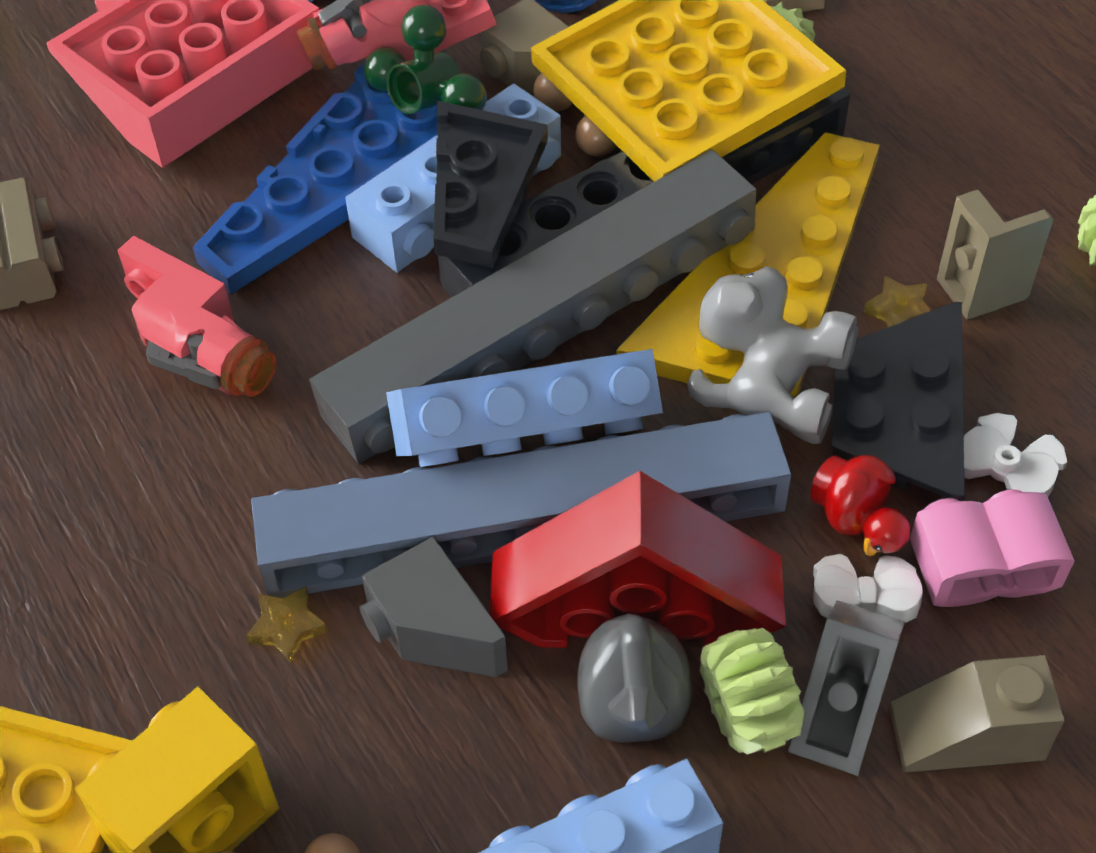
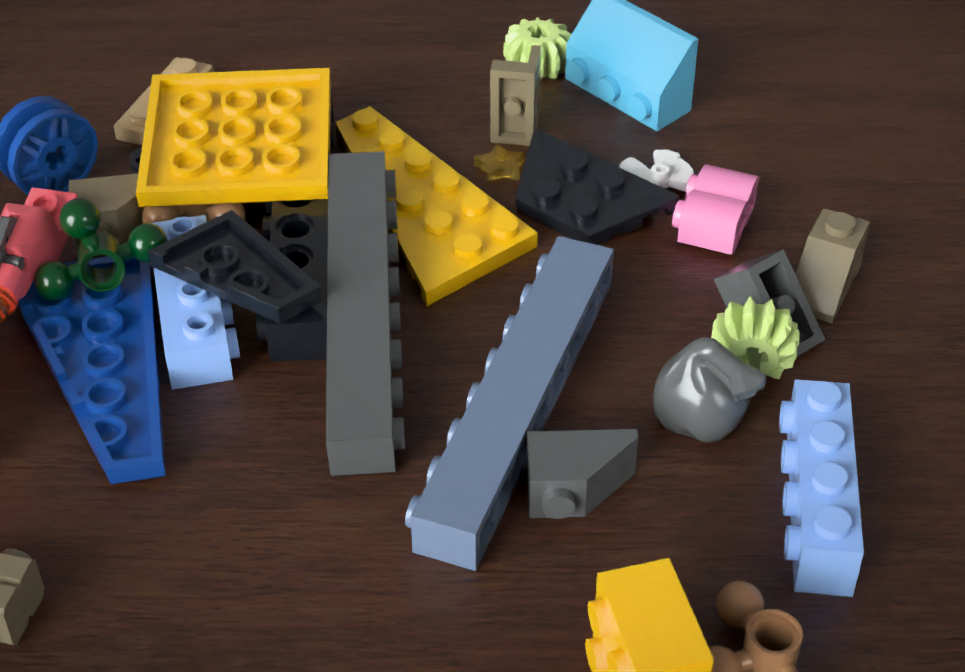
camera: 60 degrees left, 10 degrees down
(190, 323) = (176, 504): coral plate -> none
(285, 623) = (507, 565): clear yellow piece -> none
(523, 403) = (452, 344): light blue brick -> none
(637, 555) = (625, 349): red brick -> none
(747, 317) = (483, 204): light grey animal -> none
(854, 502) = (637, 243): red animal -> none
(891, 592) = (707, 264): white piece -> none

